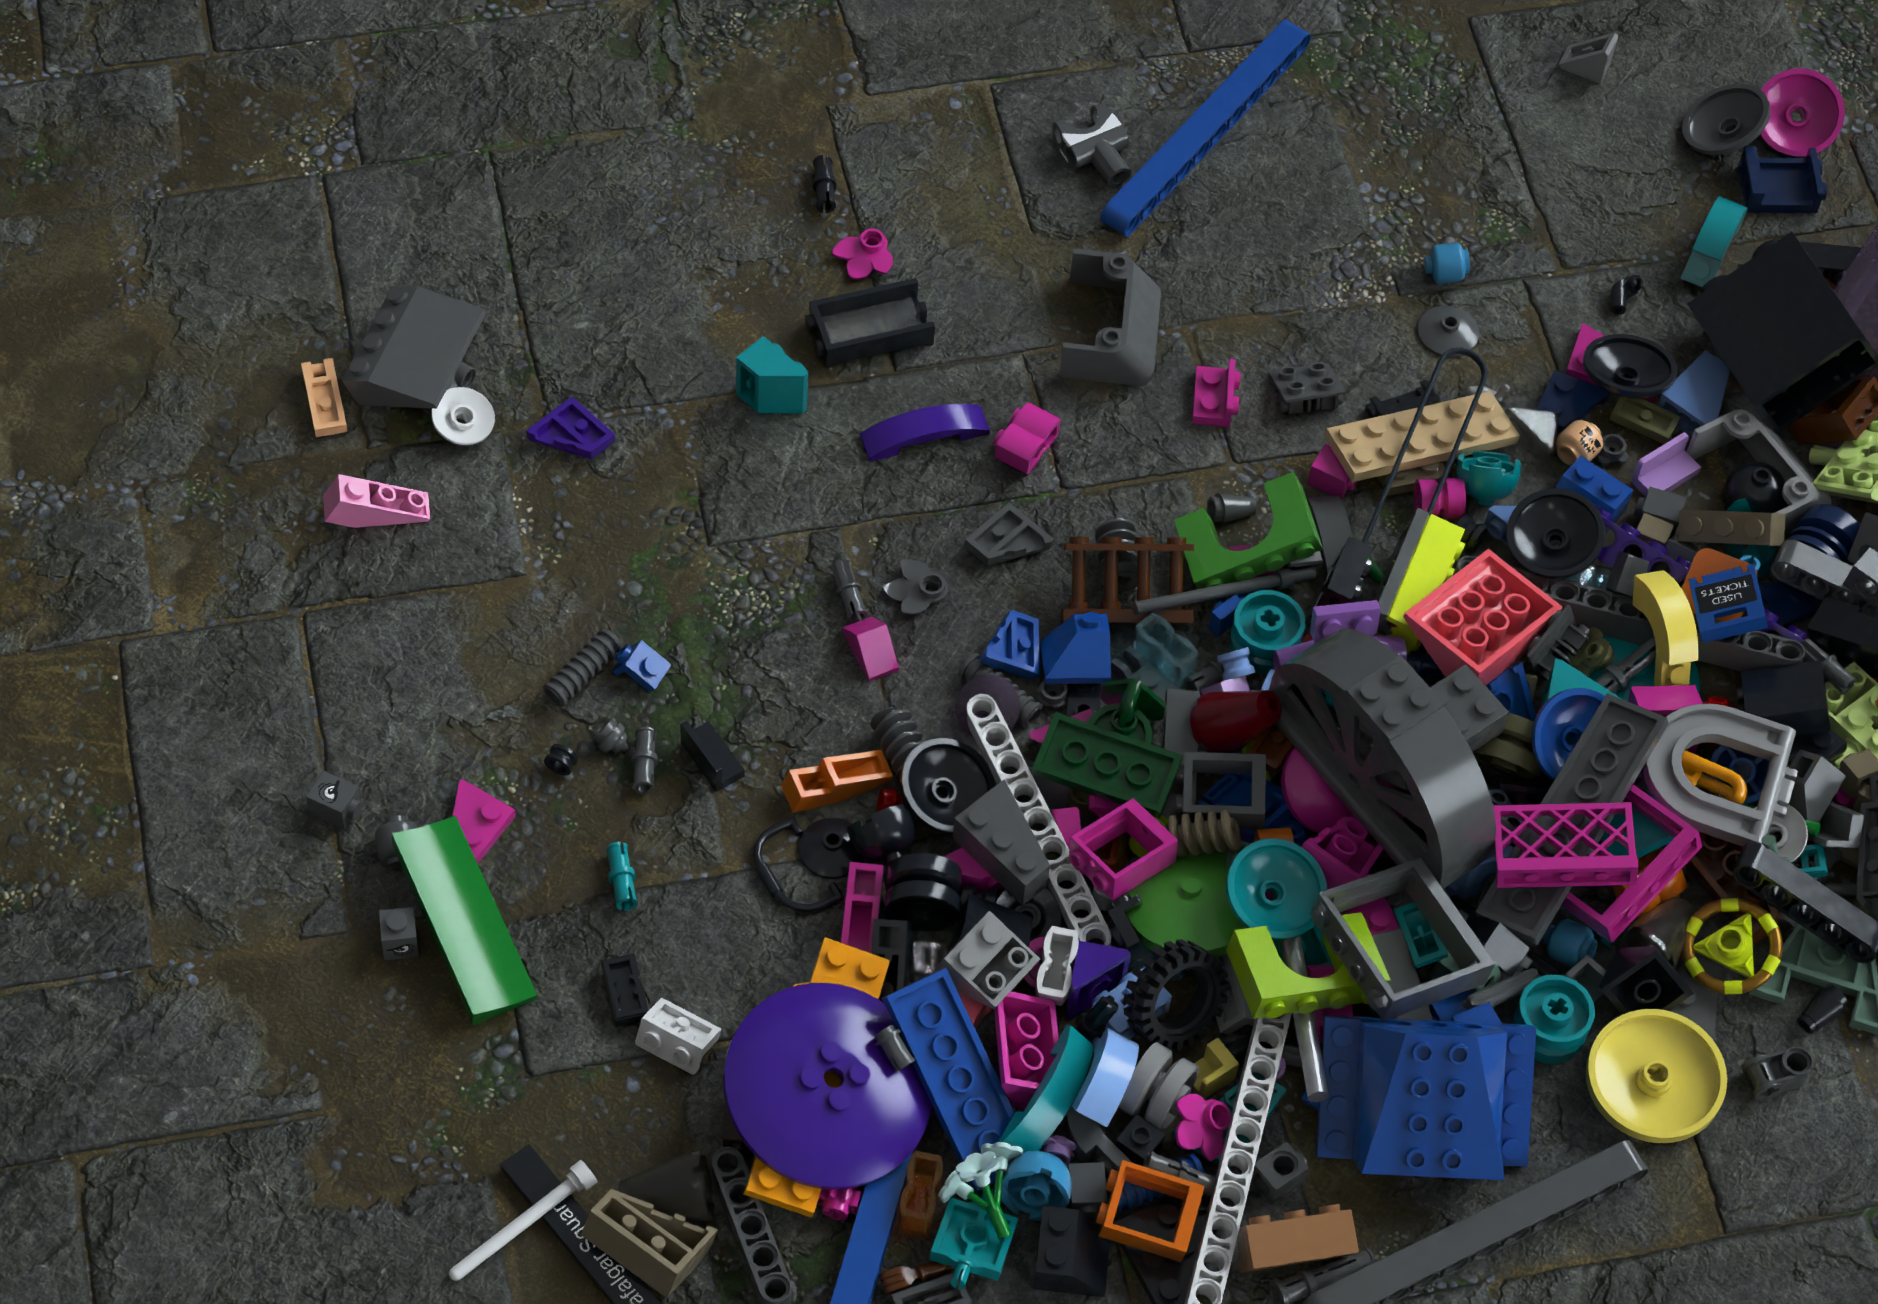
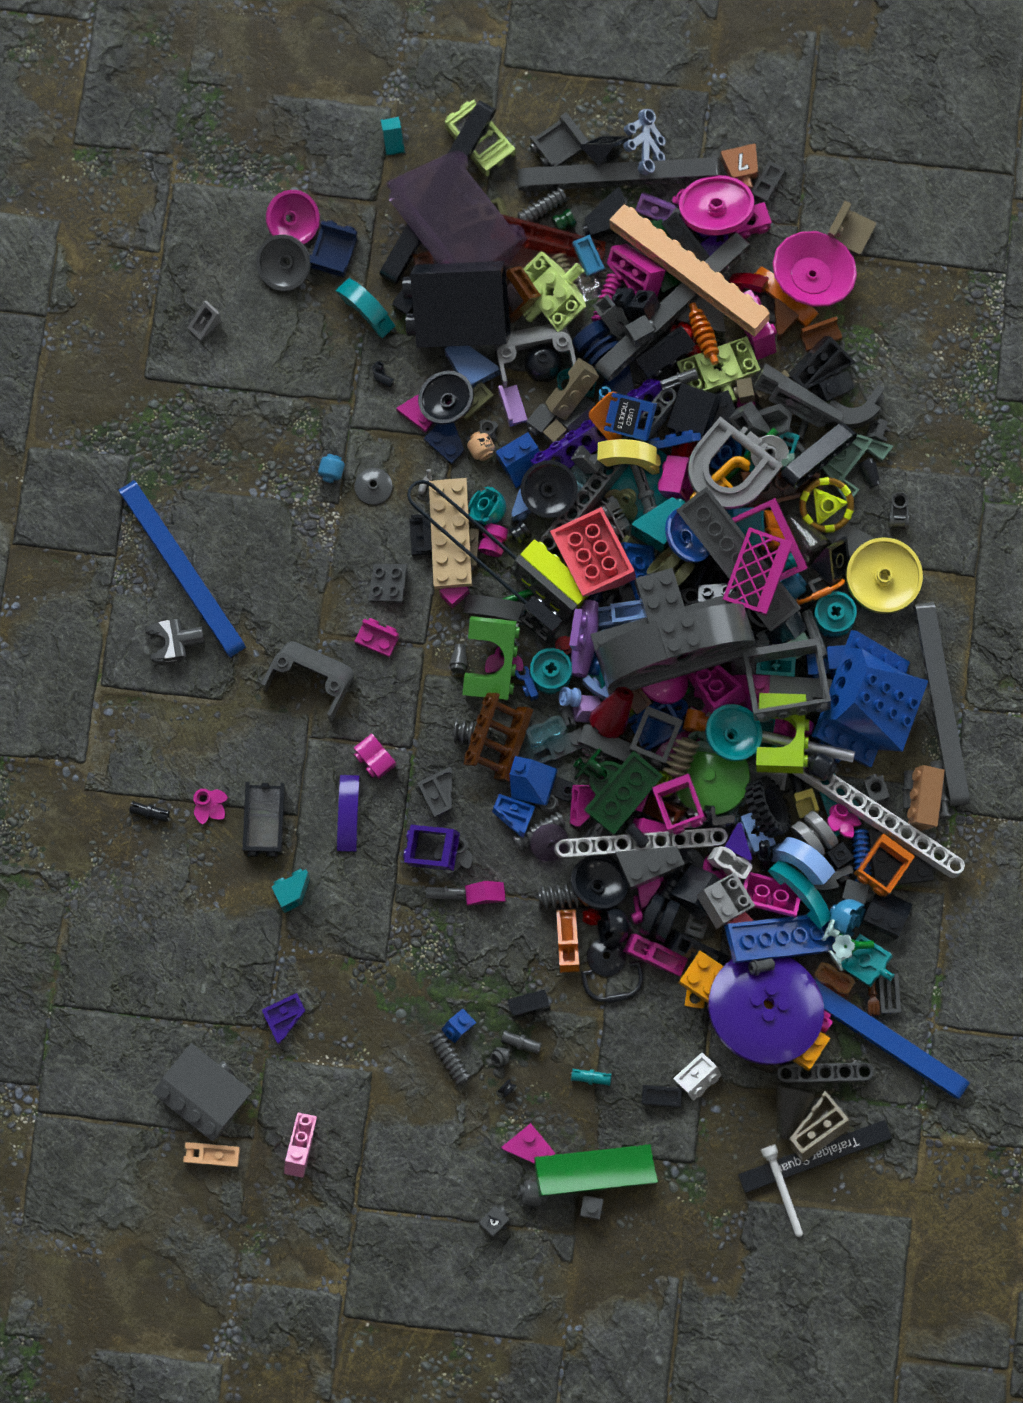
camera: 65 degrees left, 20 degrees up
(470, 407) = (261, 1070): white dish -> none
(901, 565) = (449, 850): none -> dark purple window
(1039, 811) = (634, 832): none -> black pin
(1060, 1147) = (829, 898): lavender plate -> none
(1181, 1170) = (862, 852): dark grey pin -> none
(1278, 1047) = (821, 766): none -> black head
(1281, 579) = (520, 685): dark grey bar -> none
(1538, 426) = (462, 465): clear smoke slope -> none
(1579, 977) = (821, 593): none -> orange piece
(1721, 683) = (673, 440): none -> blue plate

